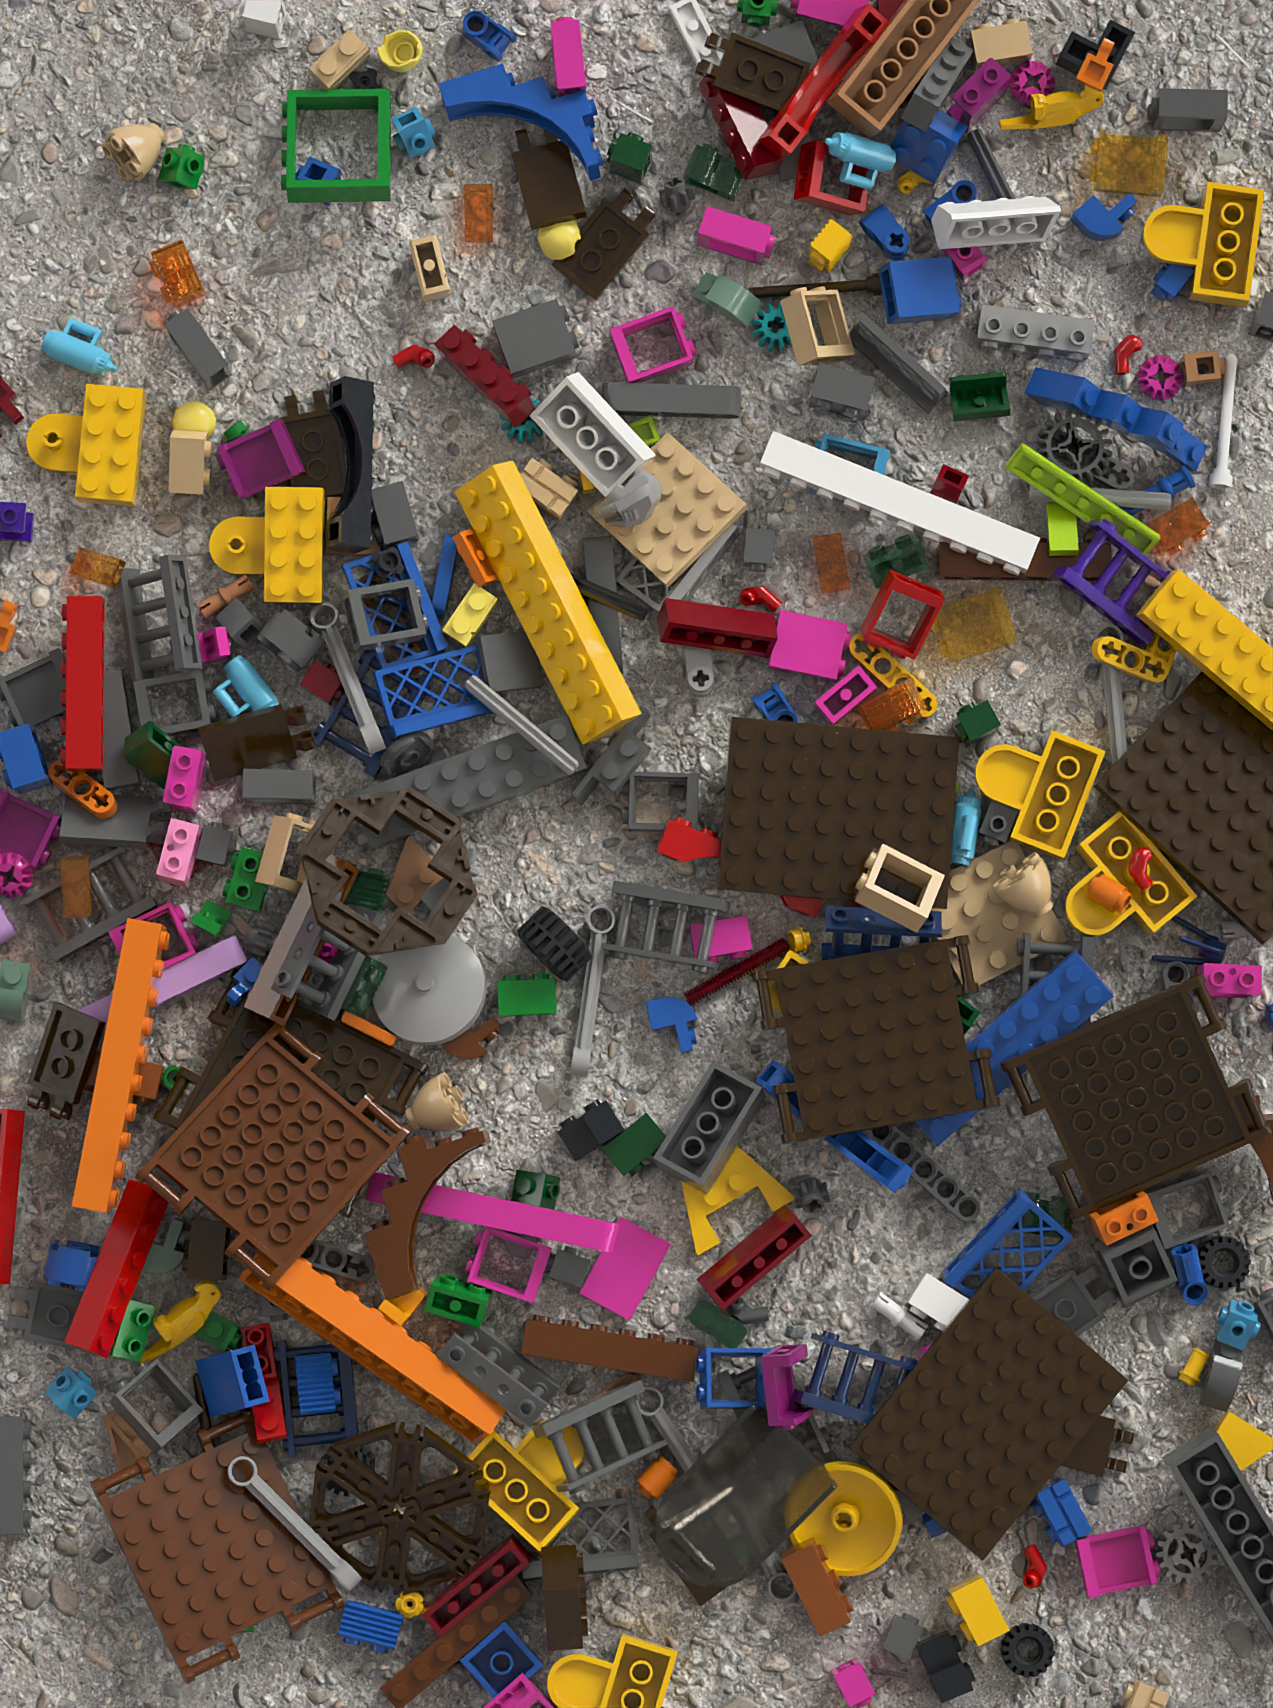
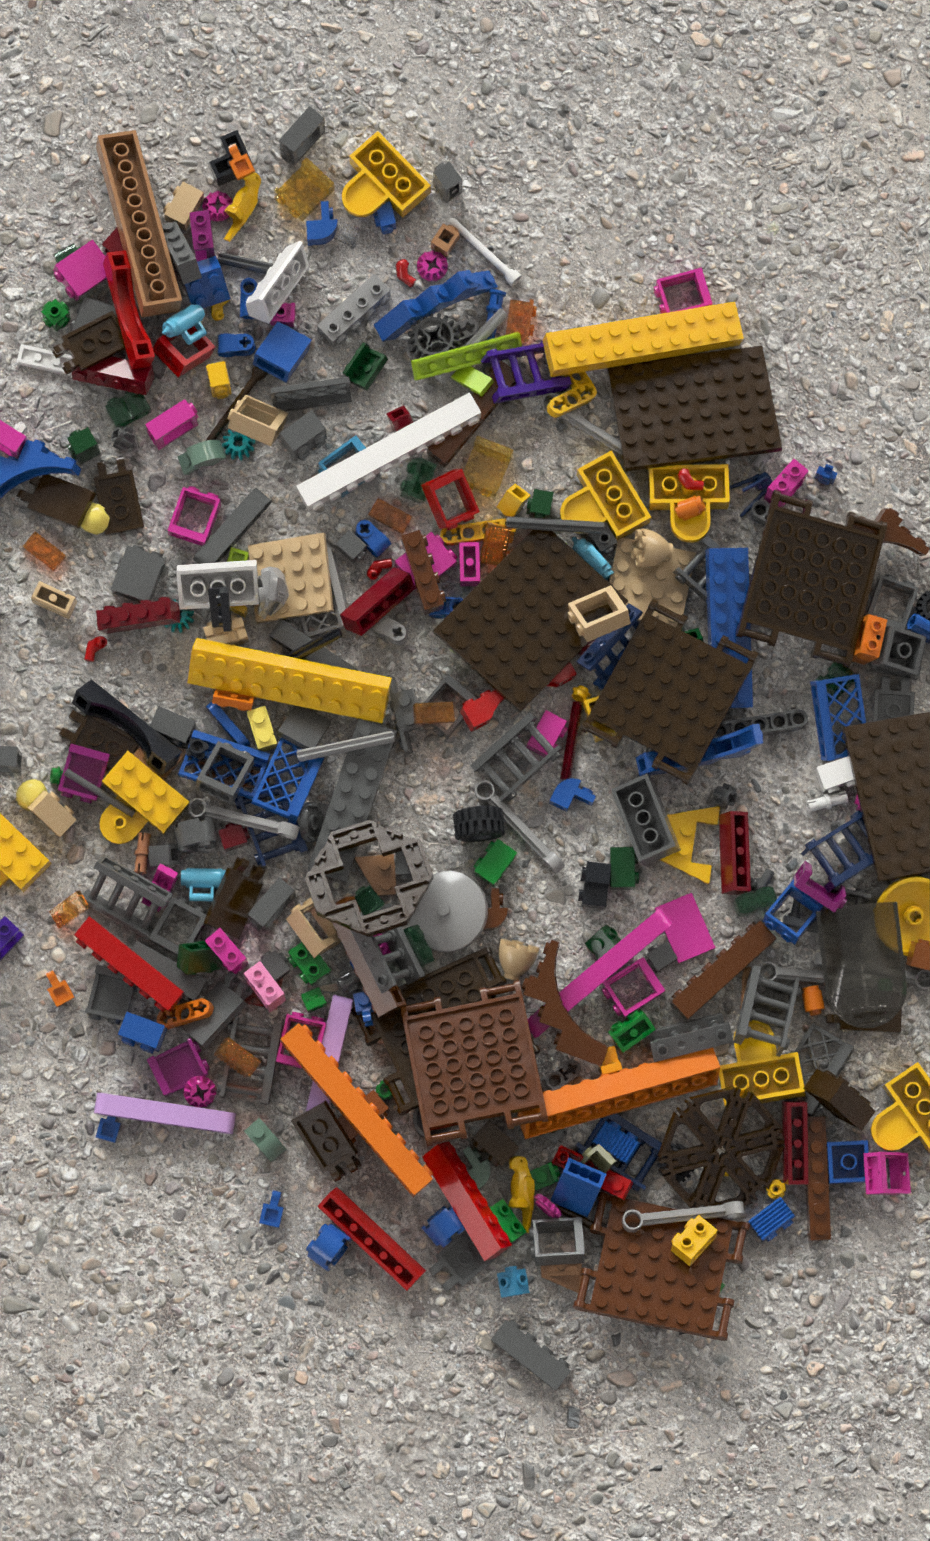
camera: 50 degrees left, 5 degrees down
(185, 1362) = (547, 1206): none -> dark pink gear
(252, 495) = (99, 792): none -> dark grey bar
(272, 1557) = (693, 1240): none -> yellow brick
(283, 1378) = (599, 1157): none -> olive bracket
(369, 1028) = (443, 961): orange tile -> none
(565, 460) = (220, 608): none -> black bracket
(640, 792) = (433, 713): none -> clear orange tile
(787, 568) = (375, 540): none -> blue piece
(792, 647) = (422, 572): none -> reddish brown brick
(958, 687) = (513, 501): none -> yellow brick
(965, 757) = (555, 525): none -> dark grey axle

